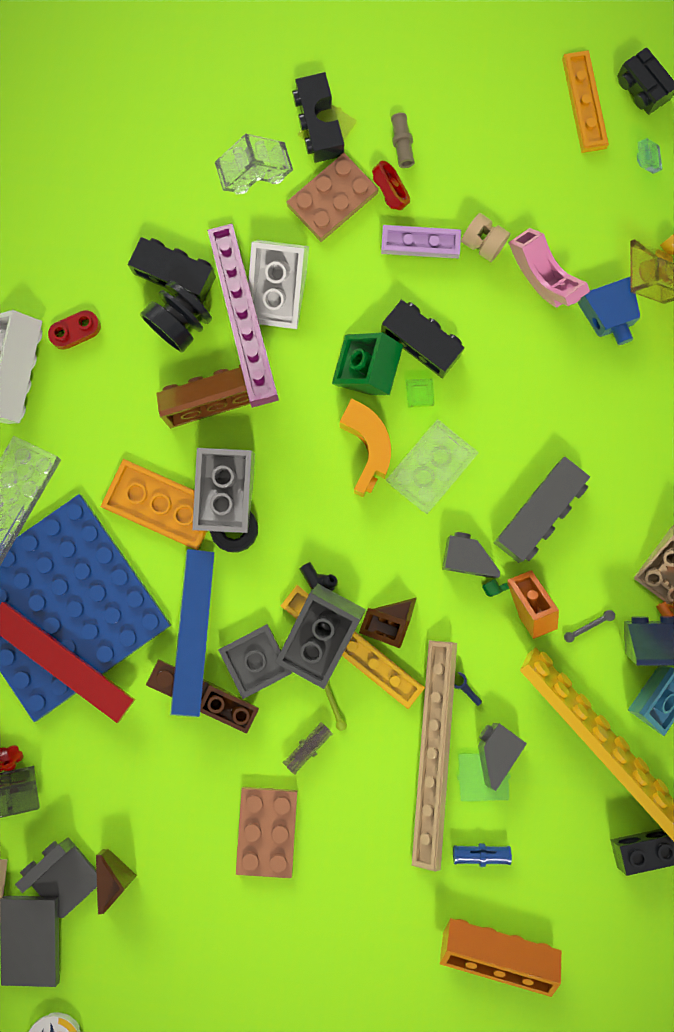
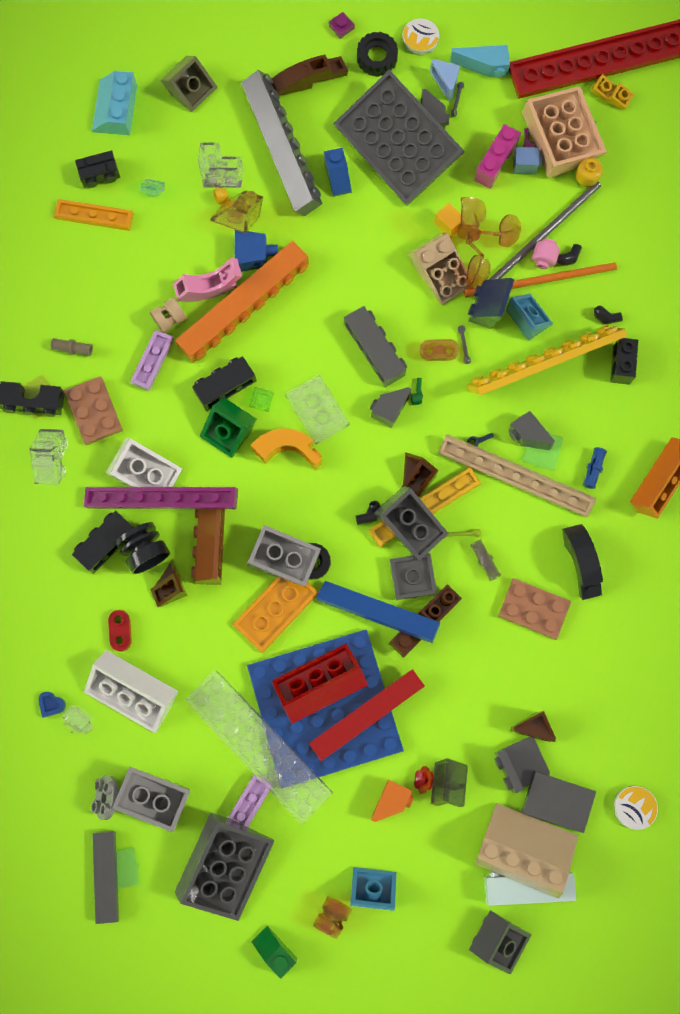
camera: 75 degrees left, 5 degrees down
(78, 589) = (319, 683): none -> red slope
(146, 367) = (169, 586): none -> reddish brown slope
(350, 880) = (585, 559): none -> black arch
(391, 185) = (101, 366): red plate -> none
(533, 604) = (437, 374): orange slope -> none
(540, 324) = (242, 302): none -> orange brick
(569, 595) = (438, 347): none -> clear orange plate

